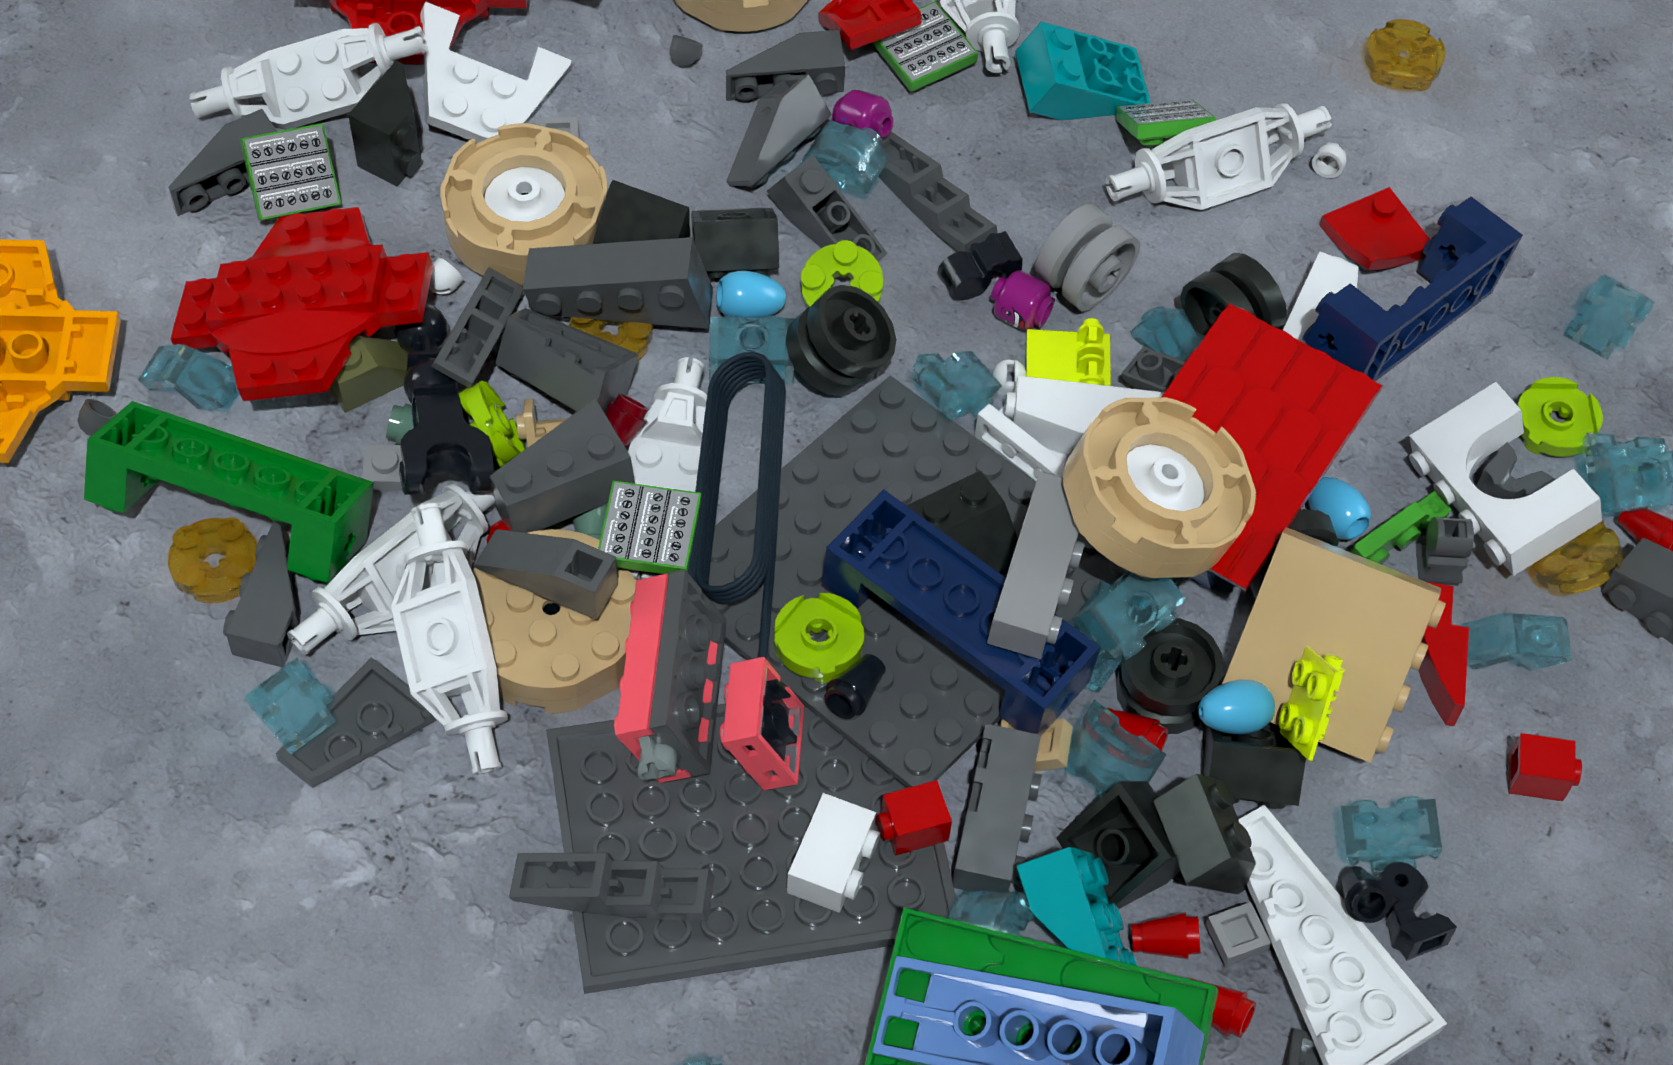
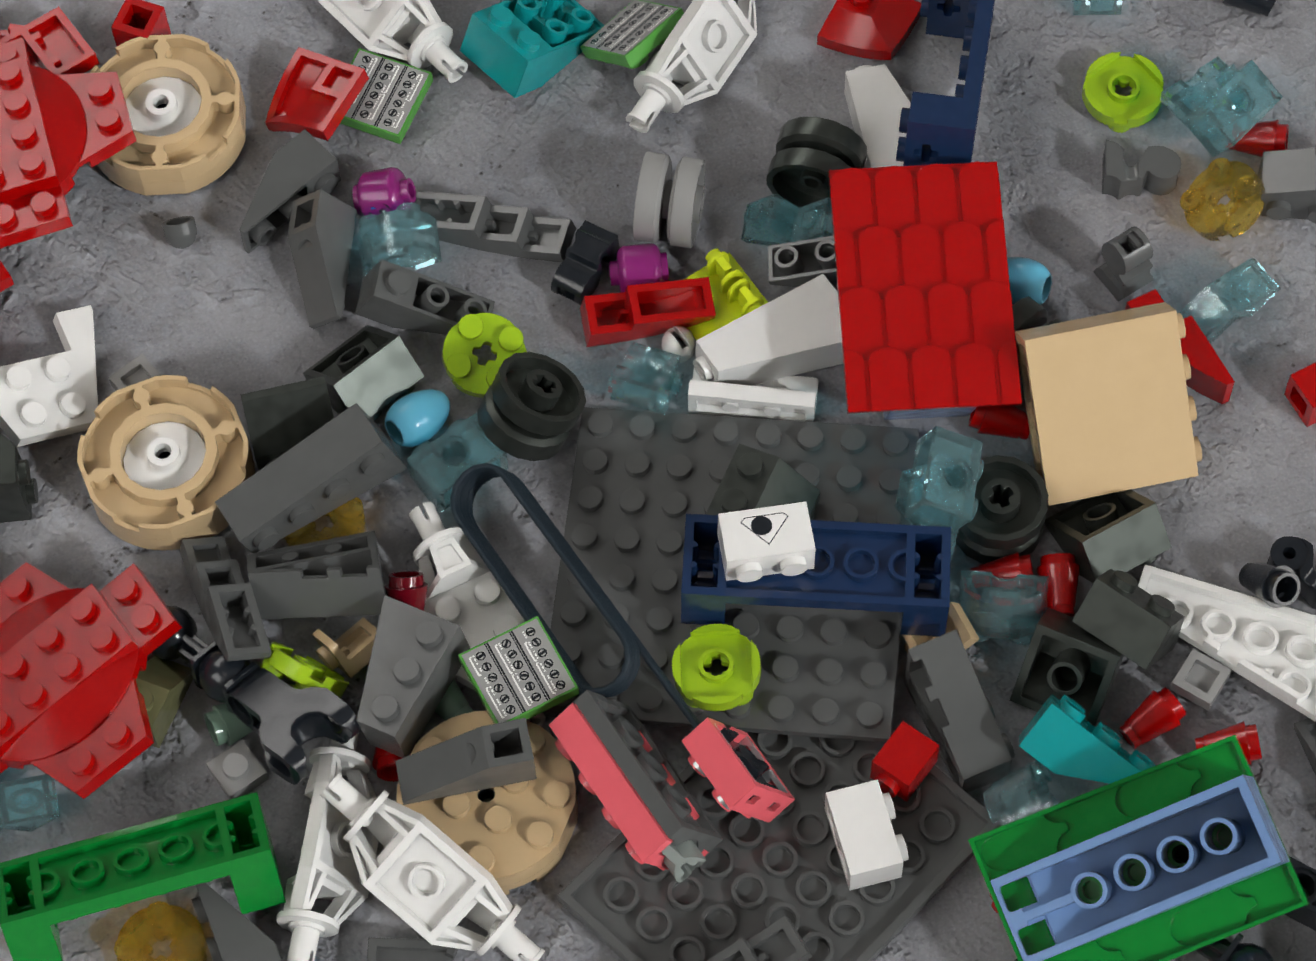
camera: 30 degrees left, 5 degrees up
(444, 277) = (151, 569): white hinge -> none
(854, 687) = (779, 690): black cone -> none
(926, 549) = (766, 542): none -> white brick
(1001, 332) = (646, 310): none -> red slope
(1038, 572) = (860, 487): light grey hinge -> none
(1158, 488) = (909, 369): tan piece -> none
(1181, 762) = (1062, 581): none -> red cone
(1228, 604) = (1000, 421): none -> red cone
(1237, 707) = (1076, 501): medium azure animal -> none
(1305, 715) = (1132, 460): neon yellow hinge -> none
(1391, 833) = (1255, 520): clear light blue cylinder -> none
(1401, 529) = (1078, 269): bright green hinge -> none
(1513, 529) = (1166, 211): white arch -> none

